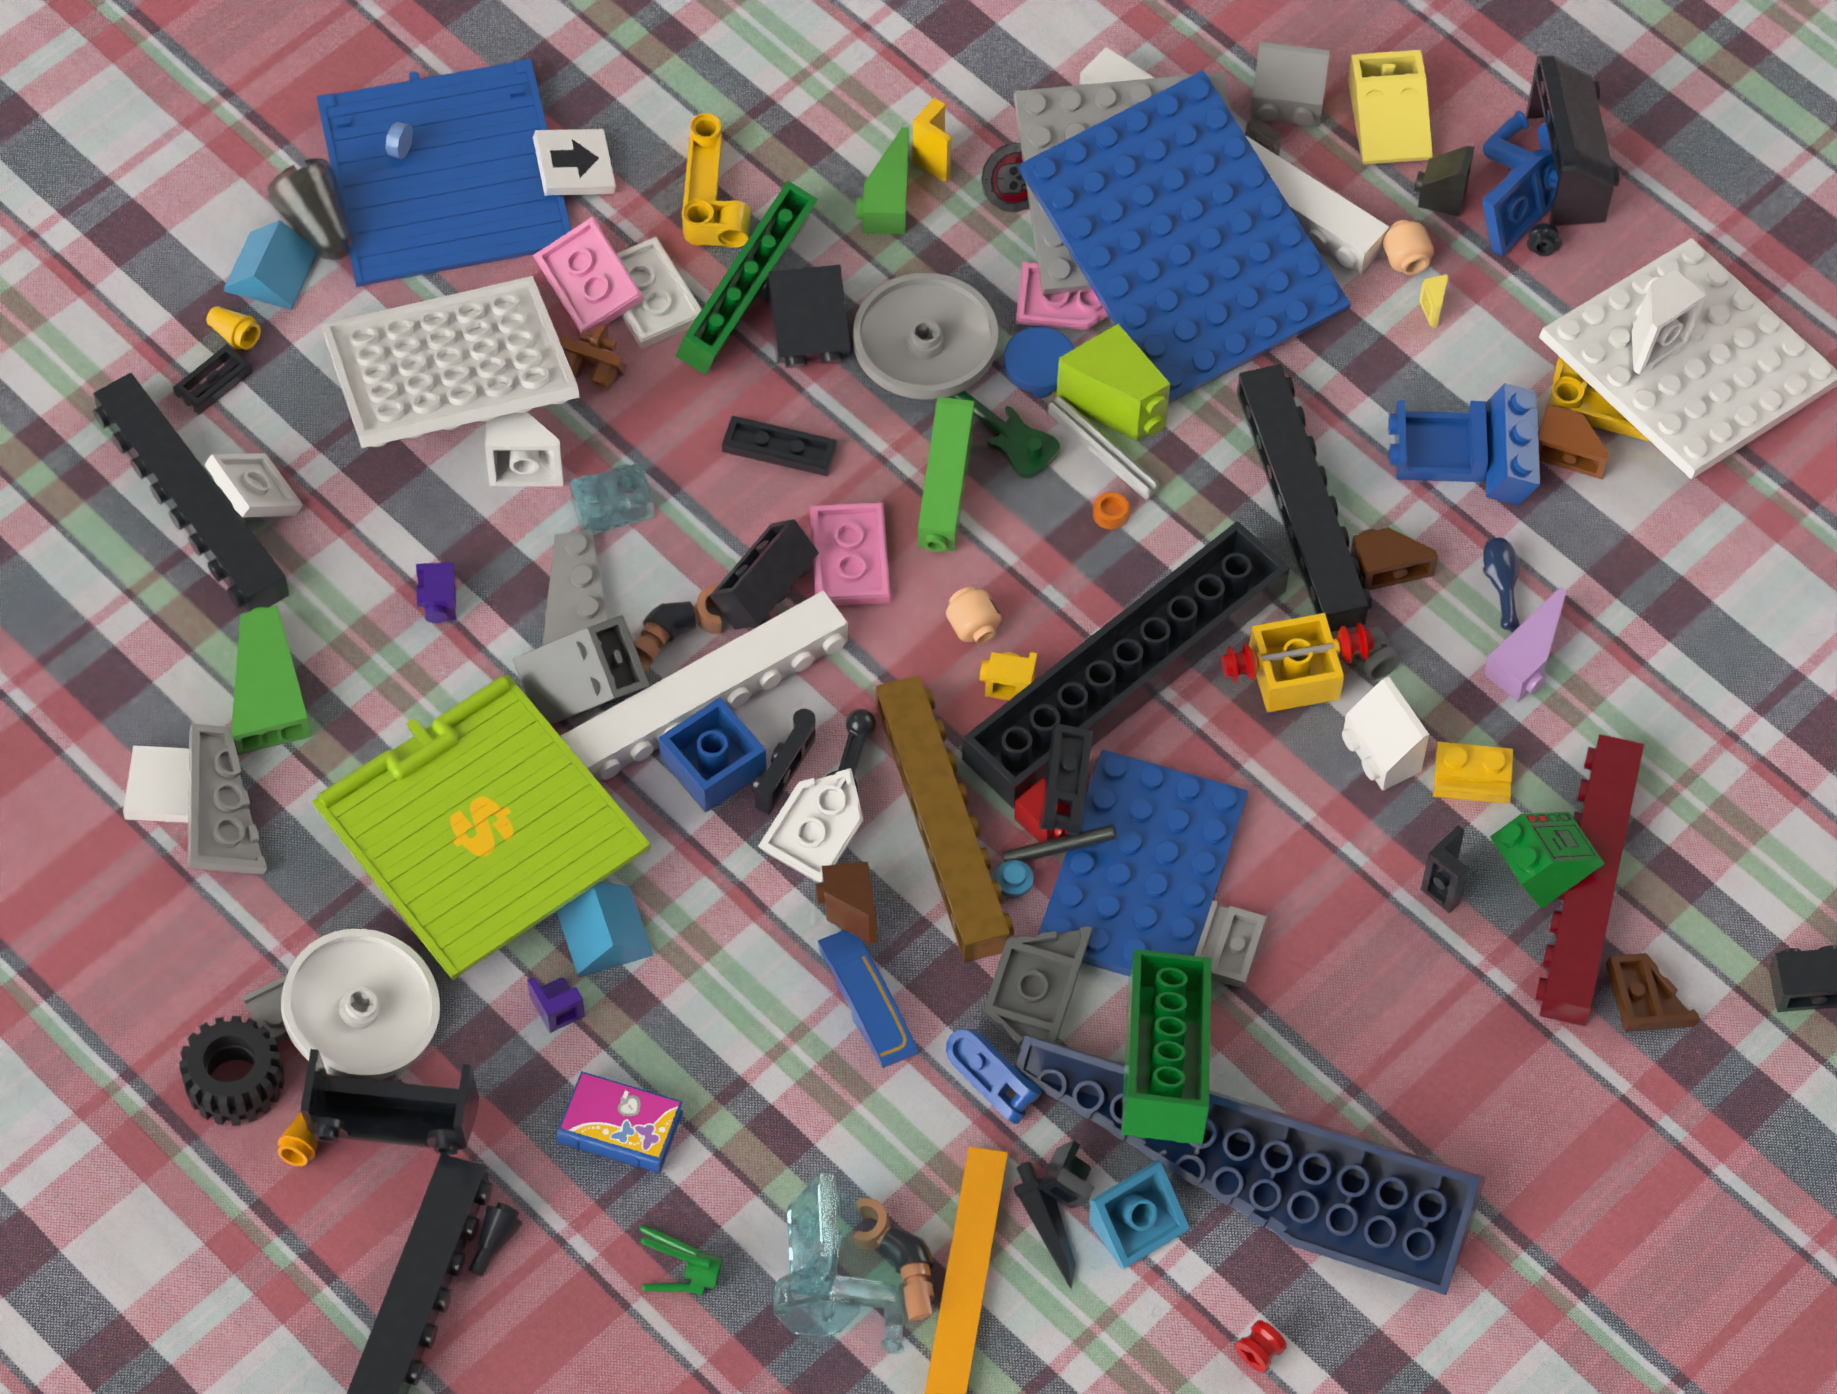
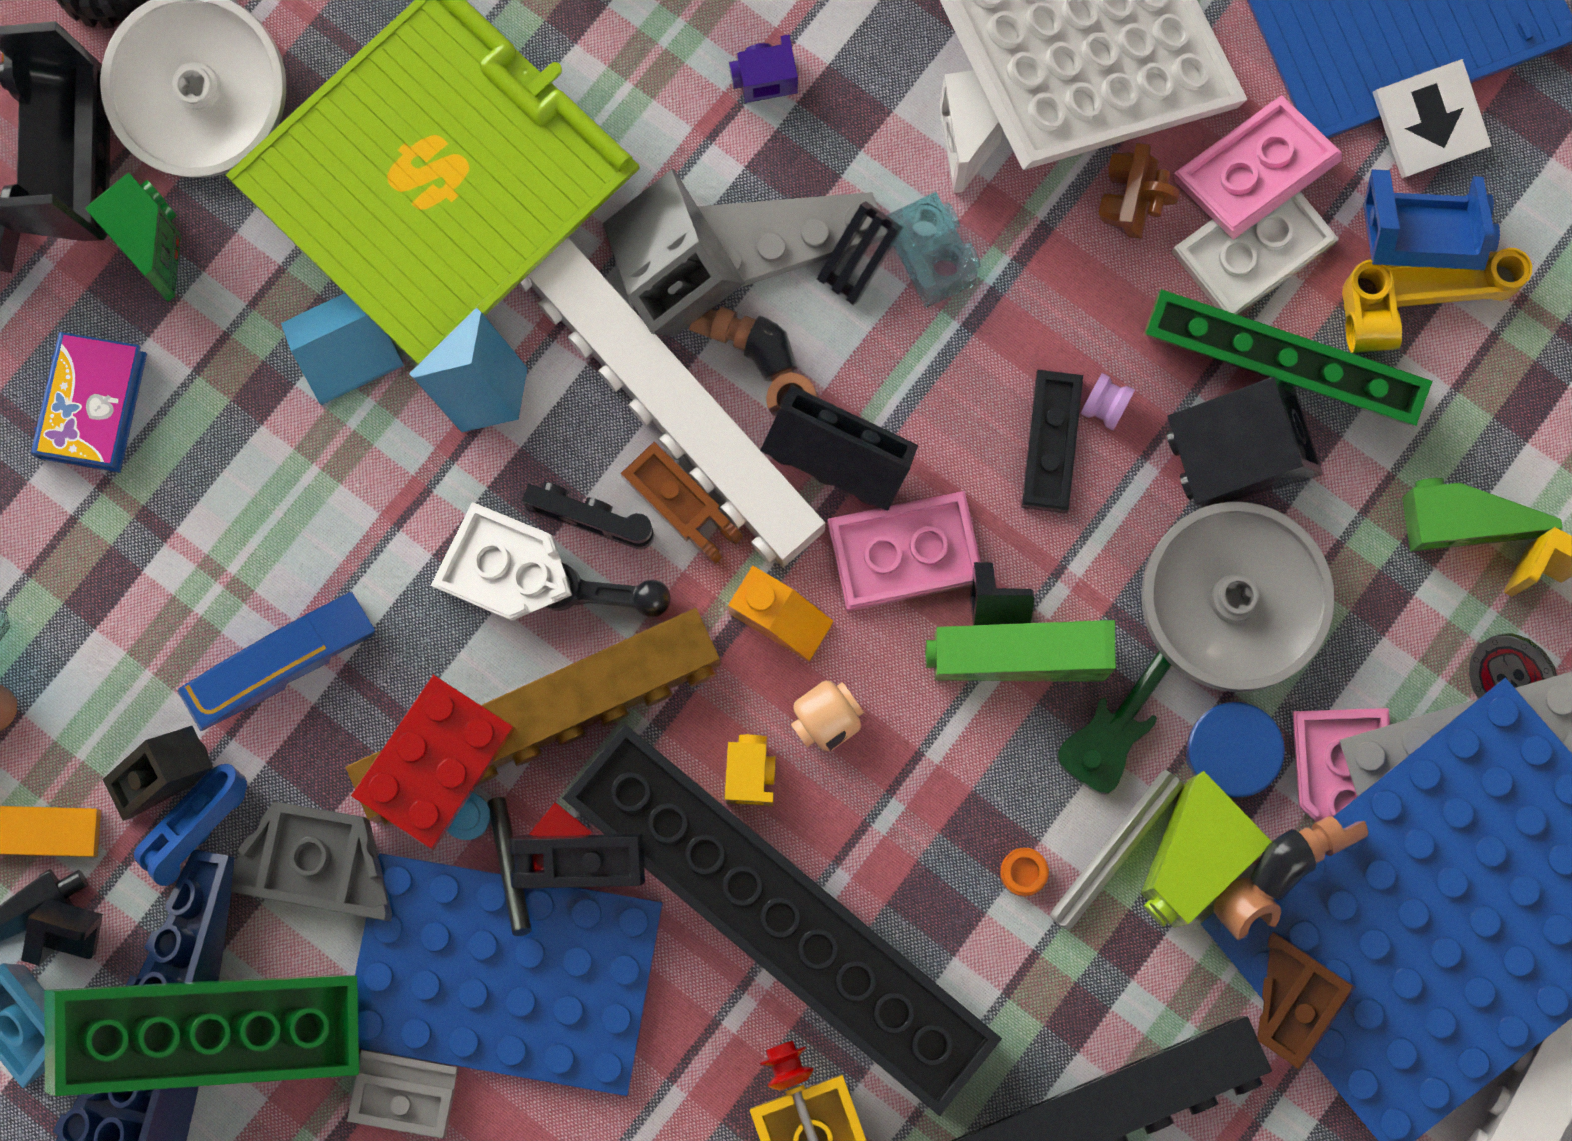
camera: 85 degrees right, 20 degrees up
(493, 1047) = (142, 228): none -> green slope
(556, 1002) = (237, 301): dark purple panel -> none
(617, 535) = (840, 283): none -> black tile
(661, 819) = (474, 376): none -> dark azure slope
(662, 172) = (1429, 227): none -> blue panel
(712, 754) = (577, 426): blue brick -> none
(757, 400) = (1107, 401): none -> lavender wheel
(783, 697) = (678, 499): none -> dark orange hinge
(849, 899) = (403, 620): reddish brown slope -> none
(884, 643) = (779, 613): none -> light orange slope
(904, 493) = (997, 605): none -> black panel
(946, 1096) = (157, 771): none -> pearl dark grey slope
(971, 877) = (433, 762): none -> red plate
(1136, 320) = (1279, 870): none -> piece
(1232, 336) = (1298, 1001): none -> reddish brown wing

